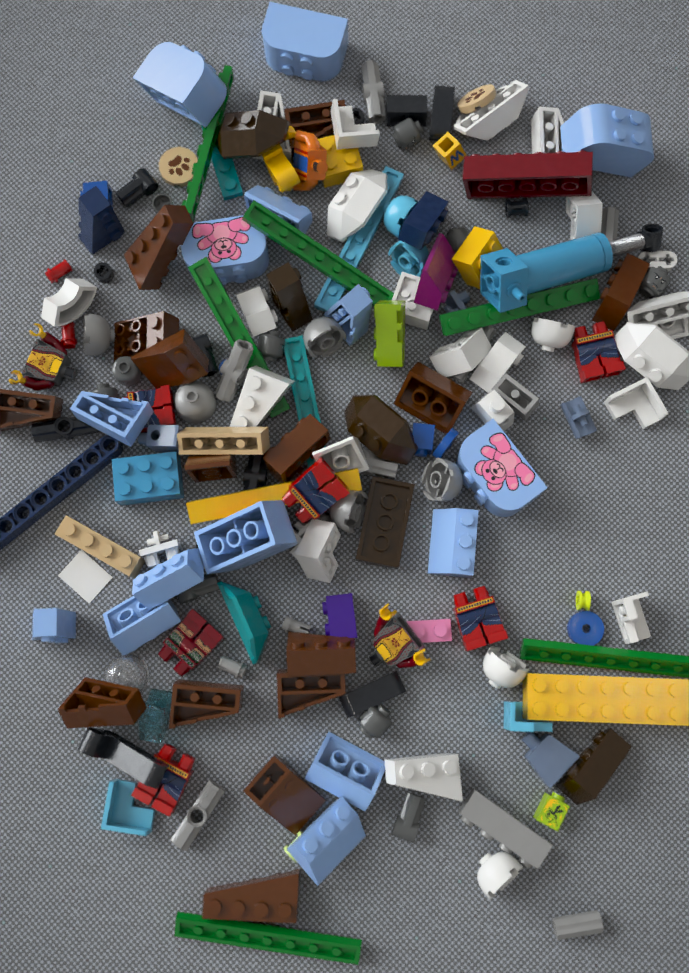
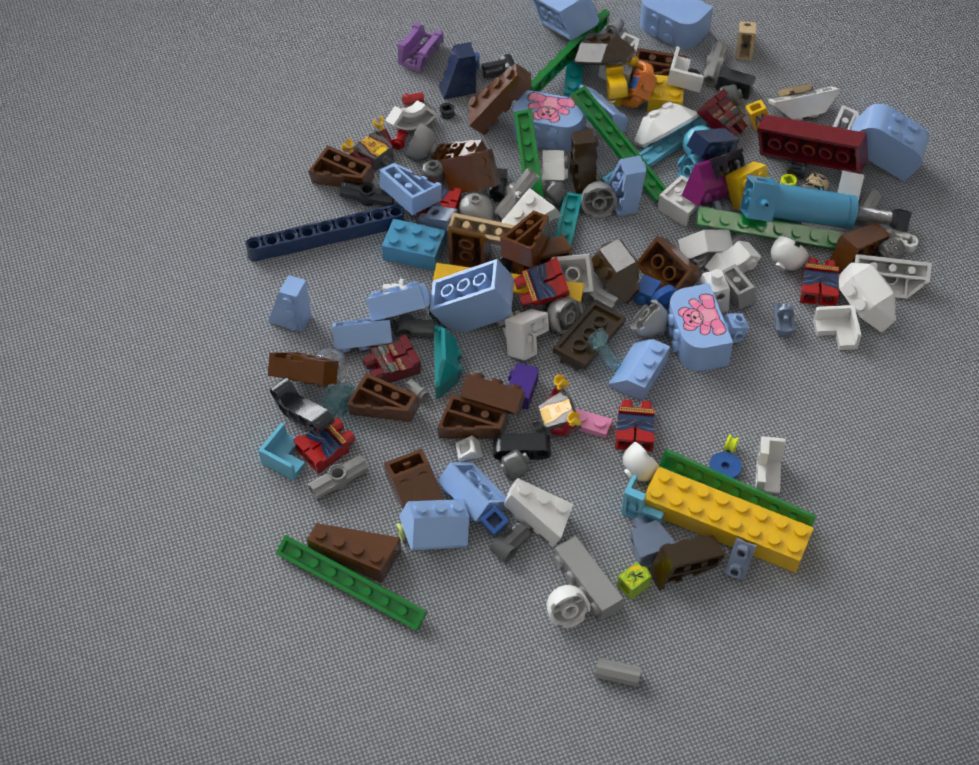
camera: 20 degrees right, 25 degrees down
(24, 196) = (411, 45): none -> medium lavender piece
(85, 576) = (331, 295): white sticker -> none
(100, 547) = (351, 272): tan brick -> none
(177, 166) = (535, 62): tan tile -> none
(241, 84) = (615, 26): none -> light grey pin
(278, 448) = (526, 239): none -> reddish brown wedge
(317, 717) = (468, 449): none -> white slope
(385, 806) = (494, 521): none -> blue brick
(389, 333) = (653, 207): lime wedge -> none
(396, 36) = (746, 36): none -> tan torso
(401, 535) = (597, 341): none -> clear light blue piece
(412, 167) = (721, 113): none -> dark red hips
(441, 112) = (765, 89): black beam -> none
(447, 242) = (726, 163): none -> black hinge
(517, 225) = (788, 178): none -> neon yellow bush
(534, 451) = (736, 326): none -> light blue brick
(544, 224) = (816, 181): none -> tan head
(647, 745) = (740, 559): none -> sand blue hips

